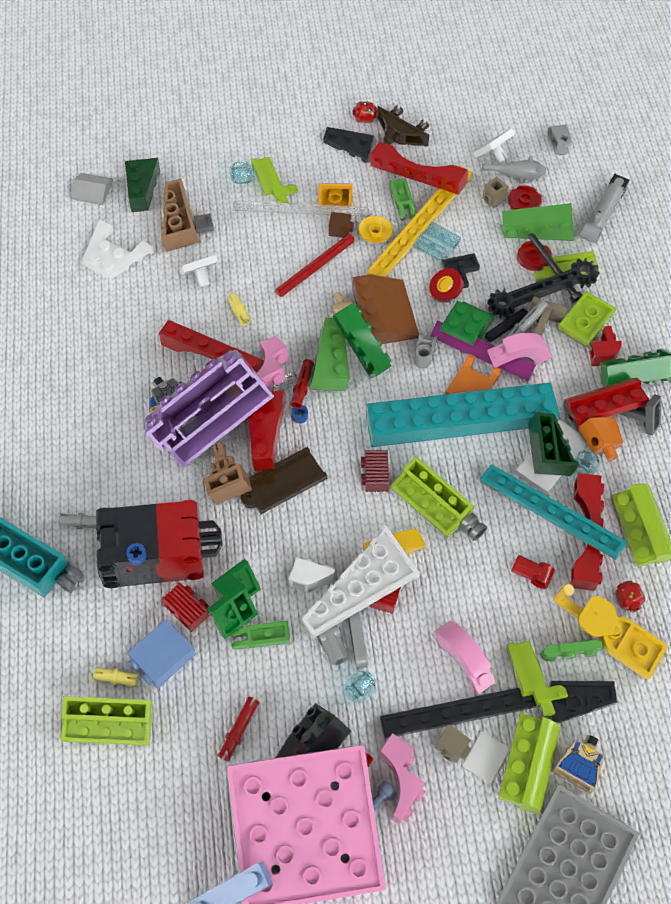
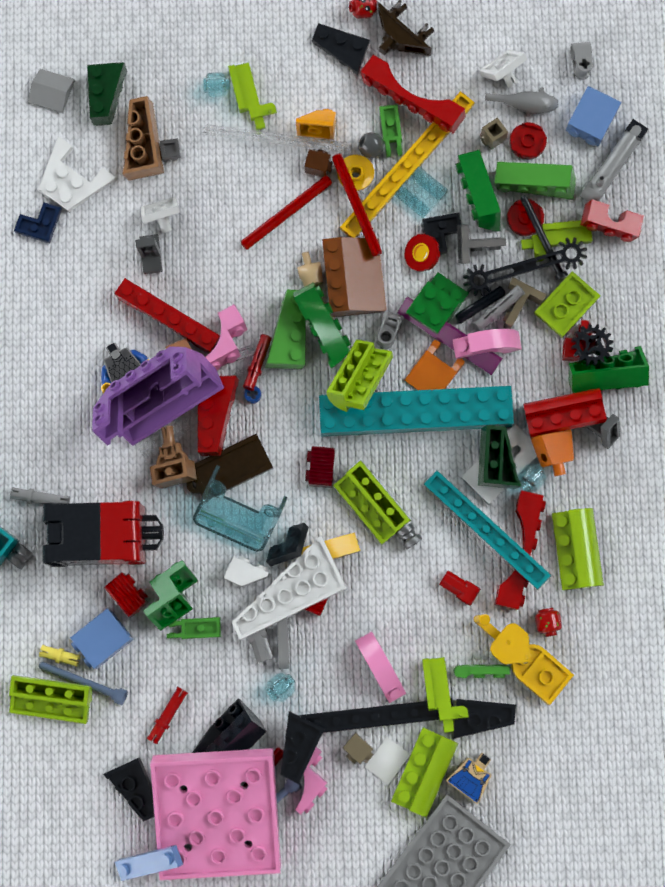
camera: 15 degrees right, 20 degrees up
(84, 292) = (40, 228): none -> dark blue tile
(131, 549) = (83, 551): blue bush -> none
(182, 712) = (118, 695): none -> sand blue piece
(190, 300) = (150, 252): none -> dark grey bracket
(208, 812) = (135, 786): none -> black wing
(239, 309) = (200, 264): light yellow pin -> none
(291, 525) = (235, 519): none -> clear light blue windscreen
(357, 541) = (291, 547): none -> black plate
(381, 252) = (357, 205): none -> red axle
(386, 207) = (371, 145): none -> dark grey piece
(390, 741) = (299, 746): none -> black wing
(403, 382) = (358, 376): none -> lime brick
(487, 276) = (465, 243): none -> dark grey bracket
(491, 234) = (479, 190): none -> green wedge
(578, 177) = (593, 116): none -> medium blue brick
(600, 246) = (596, 218): none -> arch
(611, 342) = (598, 349): none -> black gear

